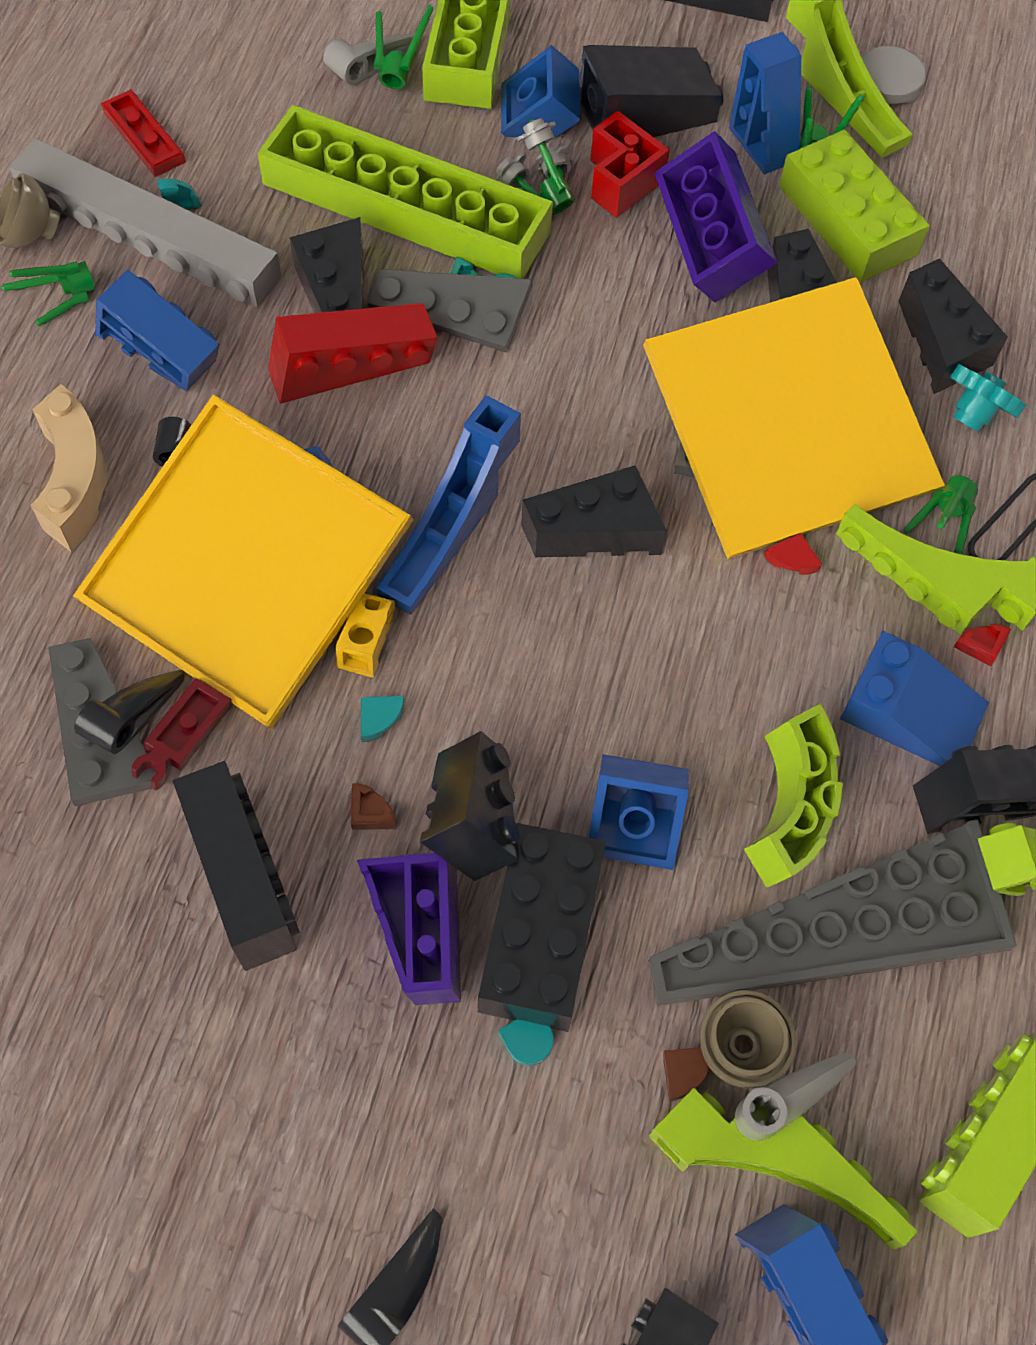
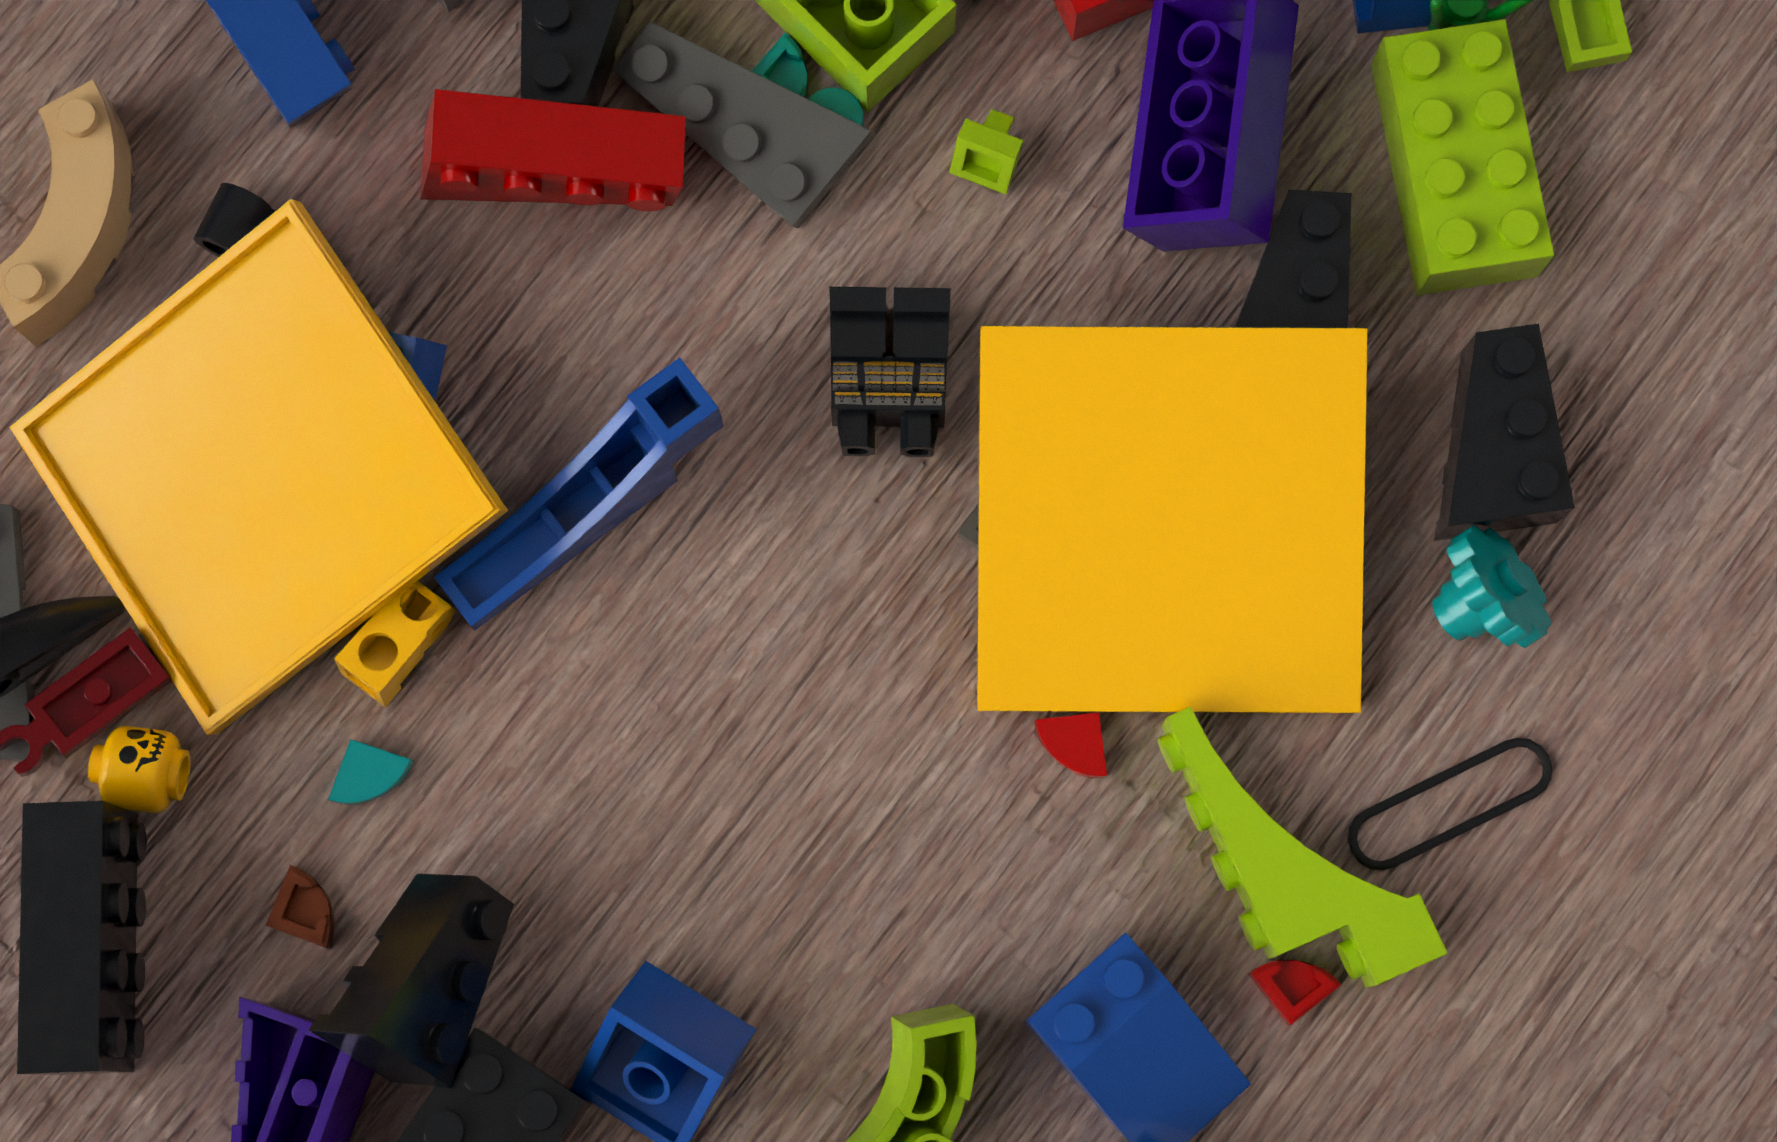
camera: 25 degrees right, 15 degrees up
(239, 749) = (140, 769): none -> yellow head
(593, 395) = (882, 388): none -> black hips
(594, 516) = (796, 577): black wedge -> none
(598, 278) = (987, 152): none -> lime tile
(954, 501) = (1363, 743): green plant -> none

